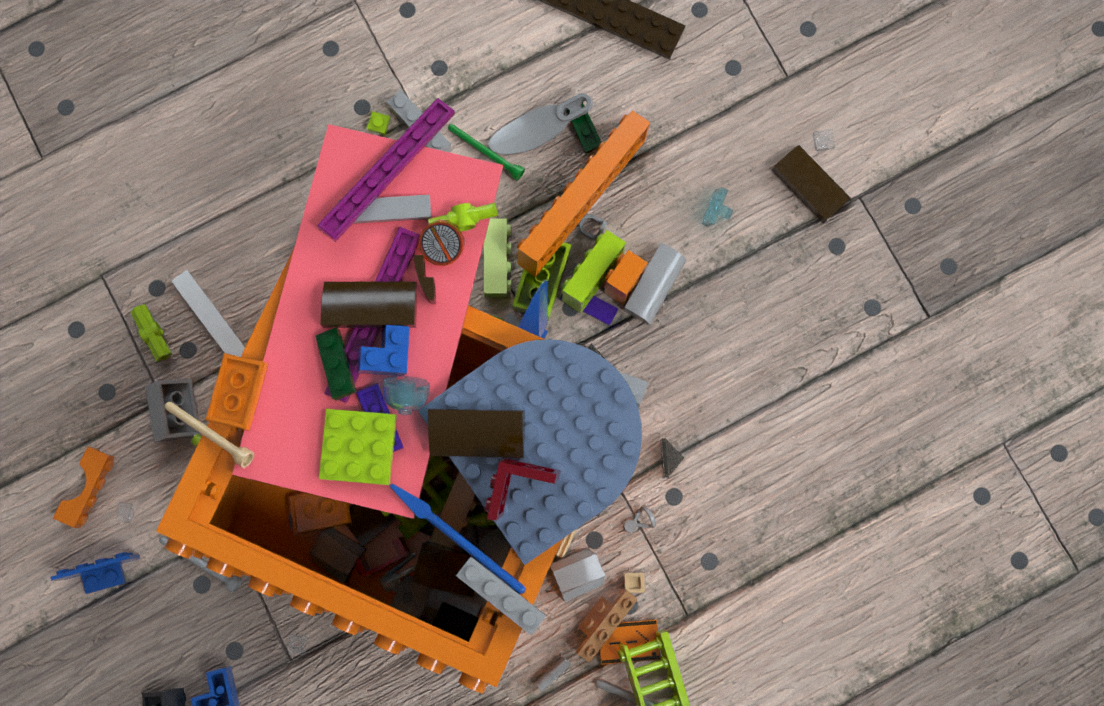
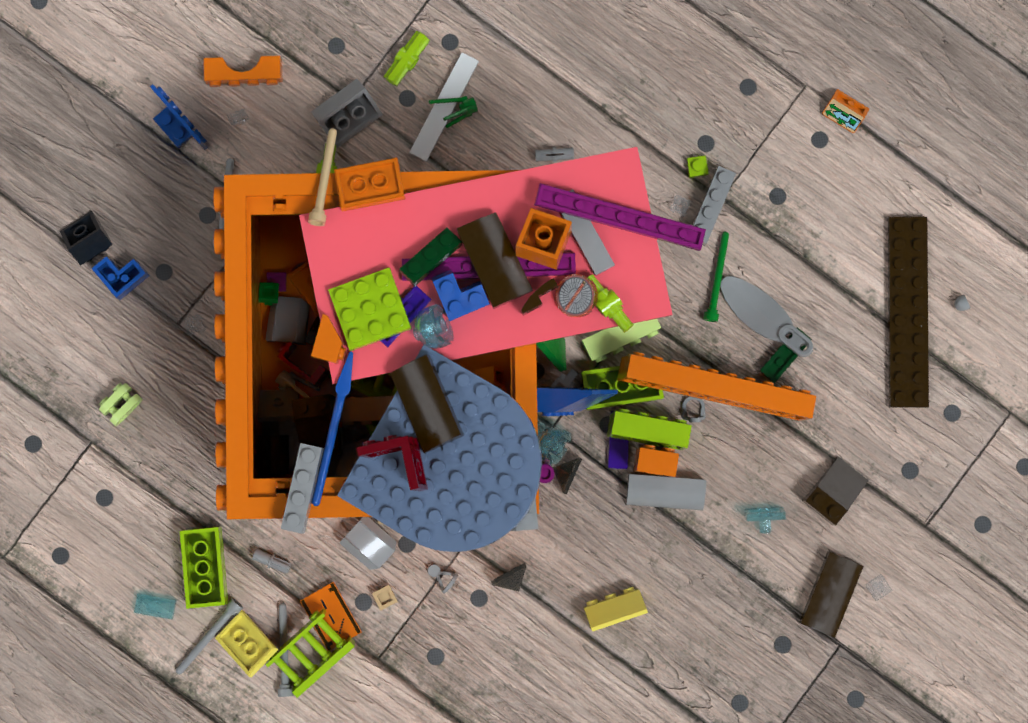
camera: 65 degrees right, 5 degrees up
(223, 300) = (466, 108): none -> green plant
(295, 548) = (277, 277): none -> magenta tile
(303, 557) = (268, 293): none -> green tile
(371, 246) = (543, 238): none -> orange brick
(371, 502) = (328, 343): none -> orange slope
(602, 622) = (336, 584): medium nougat bracket -> none
(723, 138) = (835, 491): none -> dark brown slope
(740, 376) = (614, 608): none -> light yellow slope

